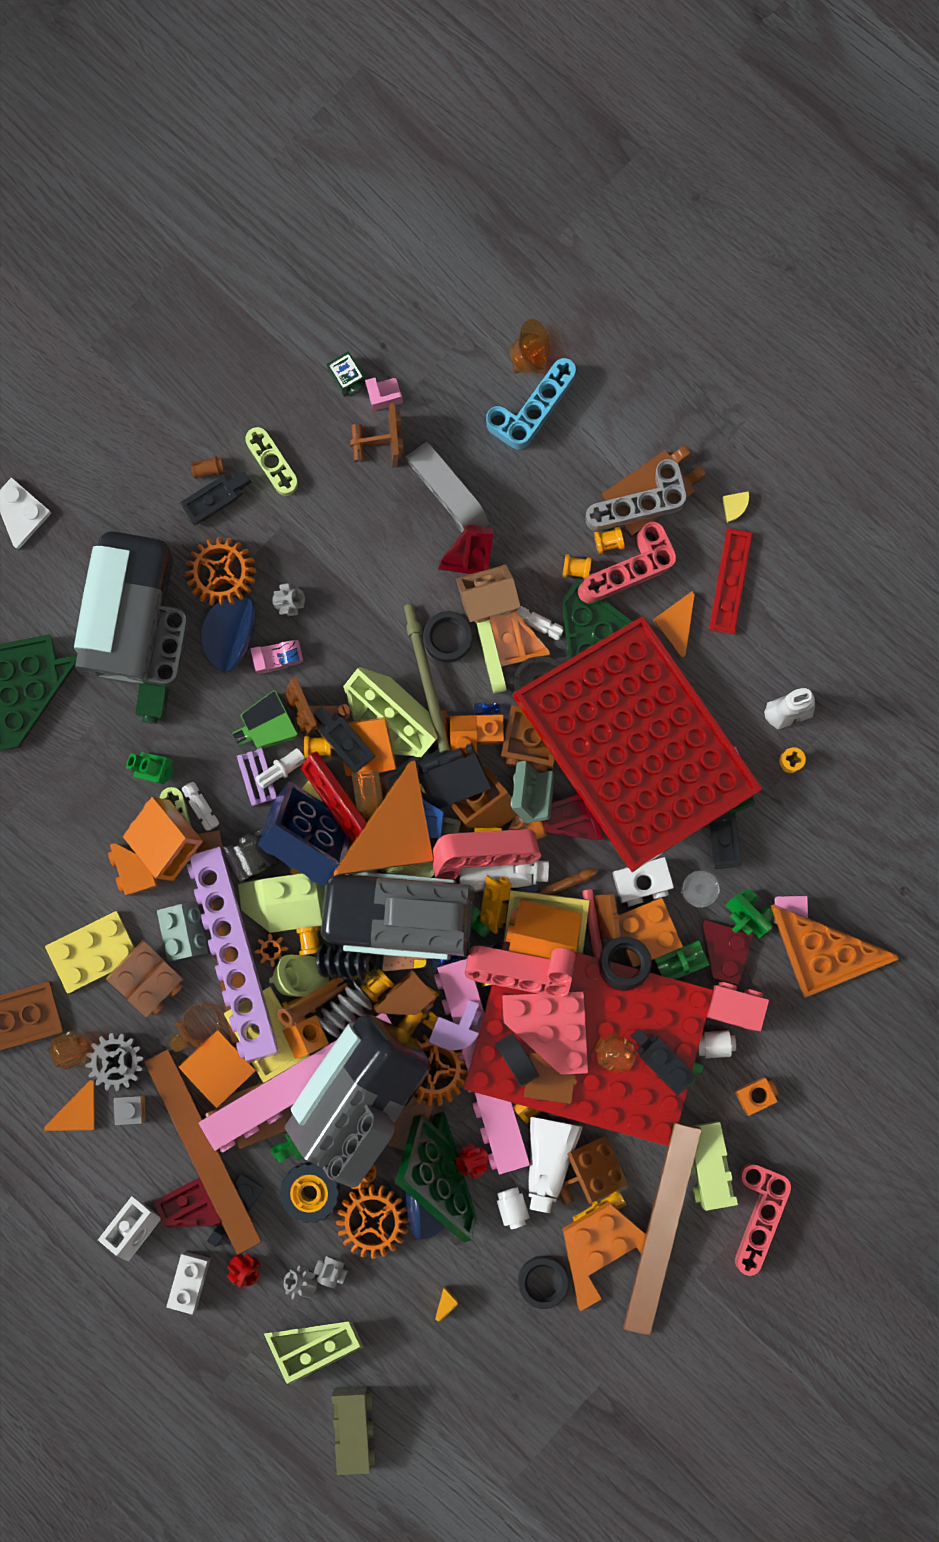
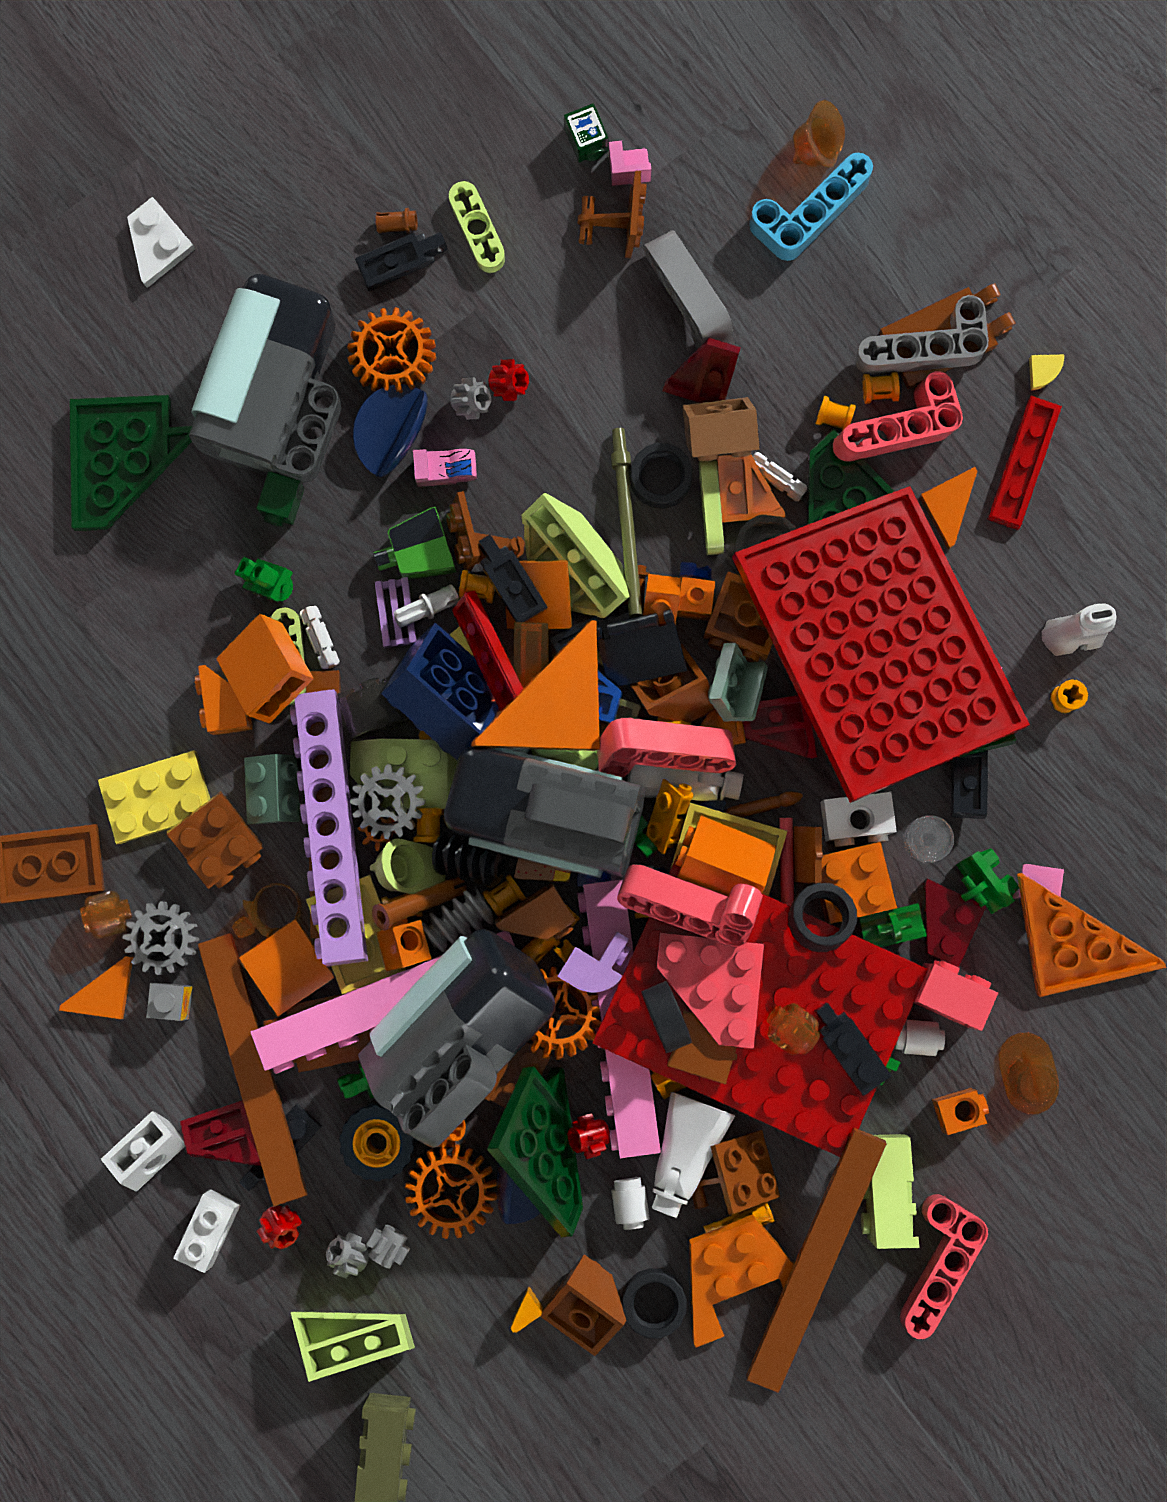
camera: 10 degrees right, 0 degrees up
(285, 934) = (375, 789): none -> light grey gear
(316, 580) = (508, 380): none -> red gear
(491, 1293) = (586, 1306): none -> dark orange slope
(805, 1058) = (1028, 1073): none -> clear orange piece

